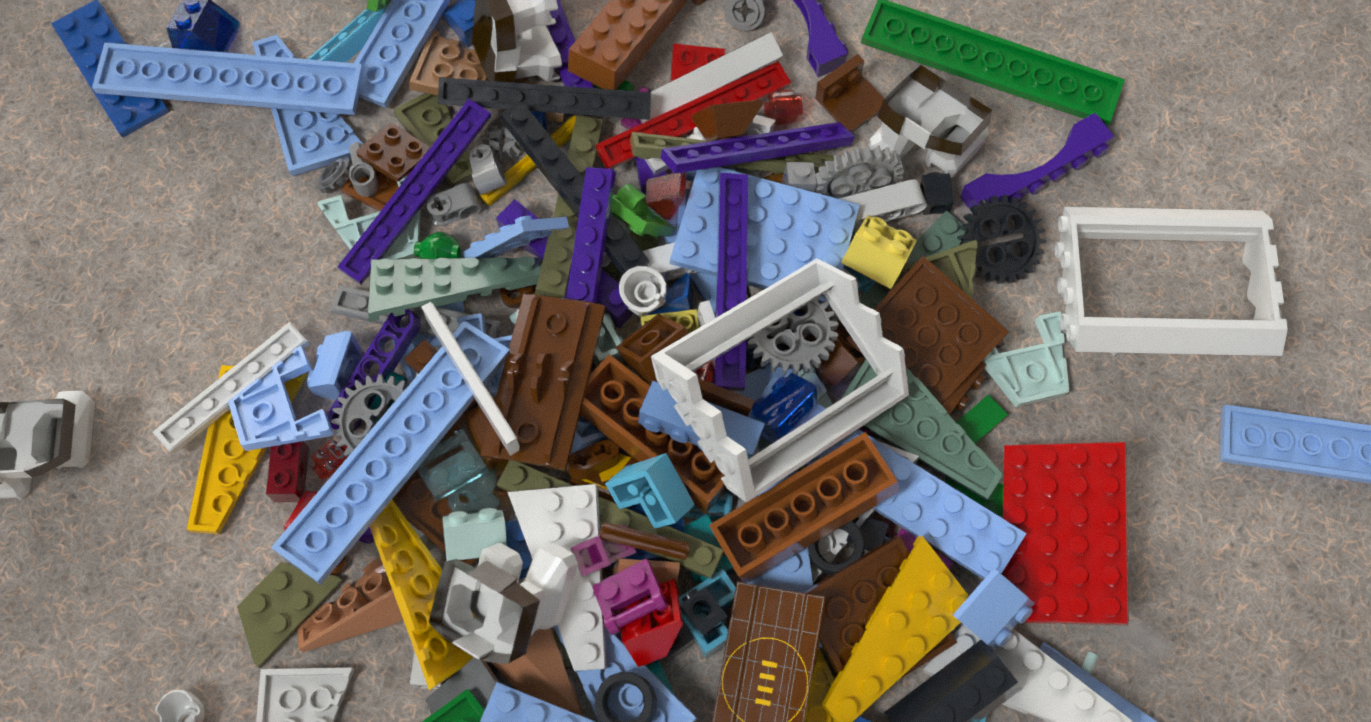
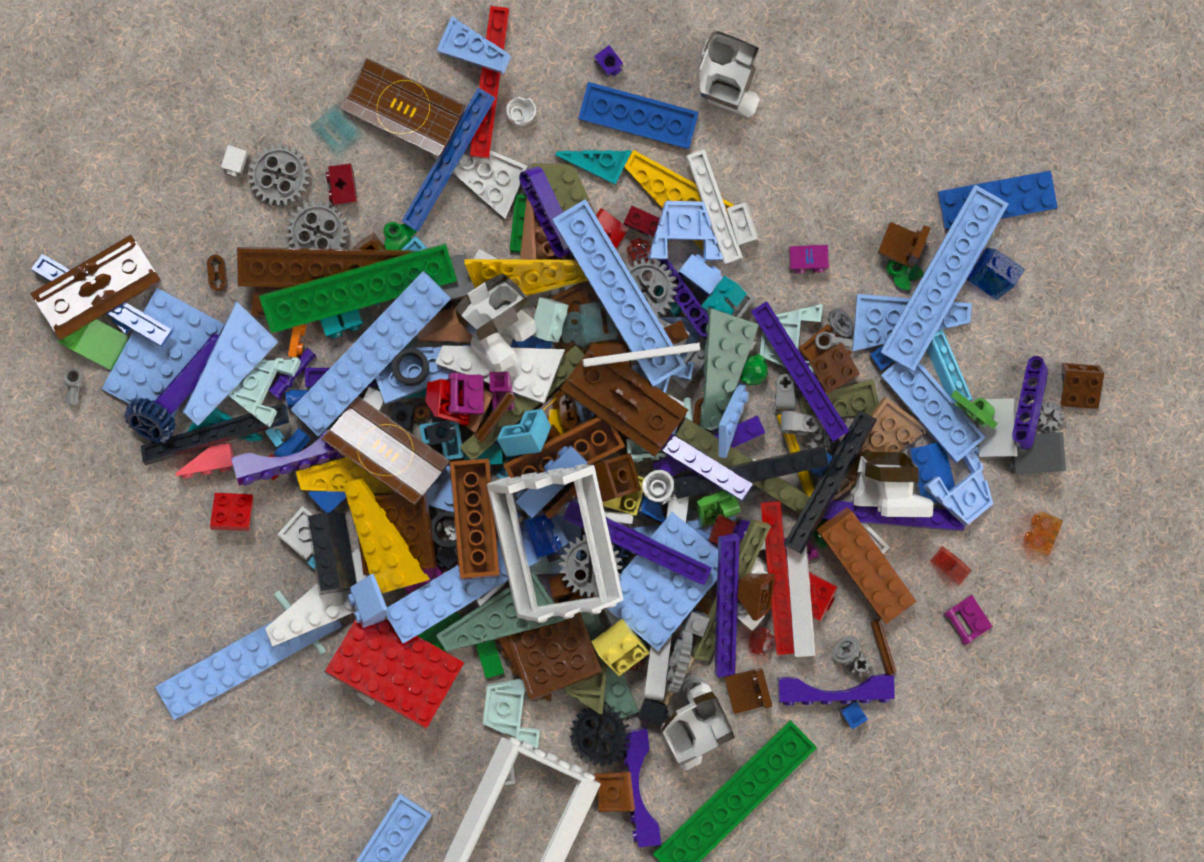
camera: 110 degrees right, 20 degrees up
(53, 619) = (605, 54): none -> dark purple brick
(134, 547) = (638, 115): none -> blue plate
(205, 138) = (903, 244): none -> reddish brown bracket
(223, 564) = (603, 164): none -> teal wing
(238, 131) = (904, 274): none -> green plate
(241, 341) = (742, 223): none -> white panel
(262, 247) = (808, 258): none -> magenta brick
(311, 621) = (545, 206): none -> dark purple beam
(338, 316) = (725, 290): none -> teal piece
(352, 647) = (518, 222): none -> green tile
(364, 115) = (880, 359): none -> blue plate
(679, 665) = (426, 413): none -> reddish brown plate
(691, 683) = (408, 409): none -> black brick
(1059, 189) = (615, 792): none -> dark orange plate

